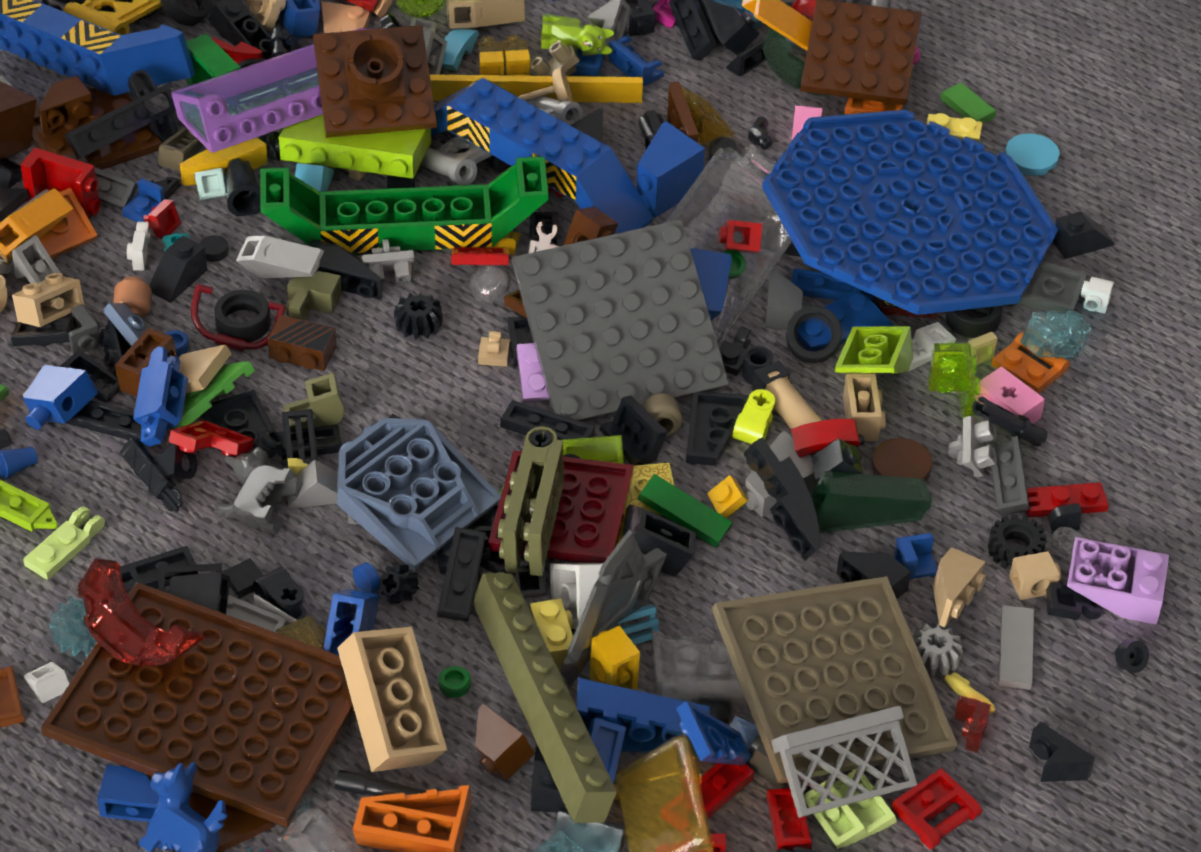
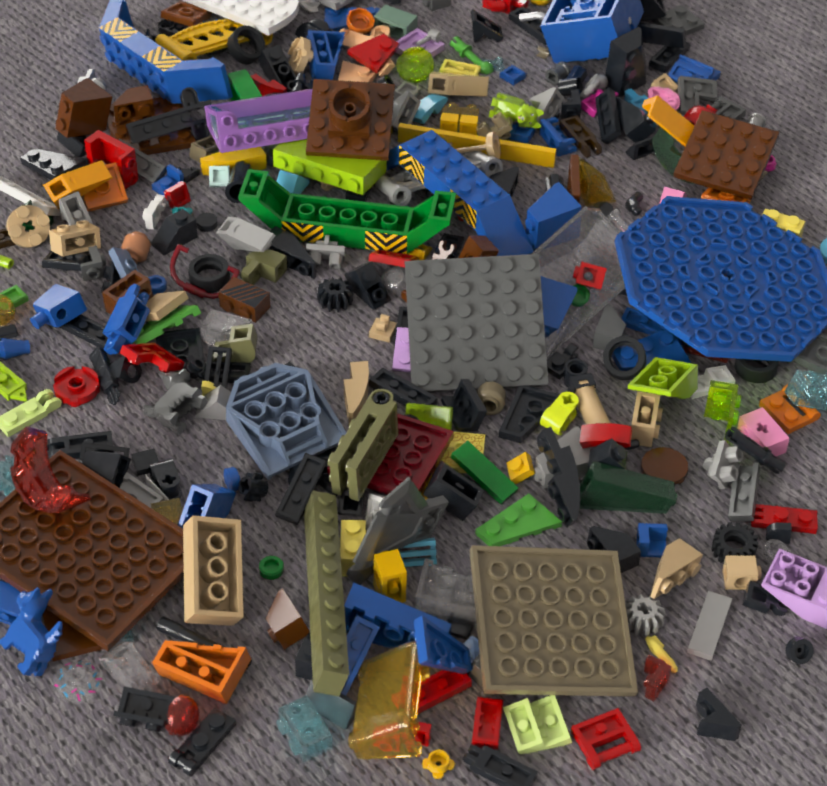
camera: 15 degrees right, 0 degrees up
(82, 361) = (83, 285): black slope -> none
(121, 508) = (76, 395): none -> red plate
(285, 384) = (218, 326): none -> clear slope
(457, 295) = (368, 285): none -> black slope
(487, 436) = (356, 388): none -> tan slope
(656, 47) = (576, 129): none -> dark brown hinge
(743, 565) = (517, 521): none -> bright green wing
(839, 732) = (546, 664): light grey fence -> none
(967, 103) = (802, 207): bright green tile -> none
(983, 347) = (752, 391): tan tile -> none

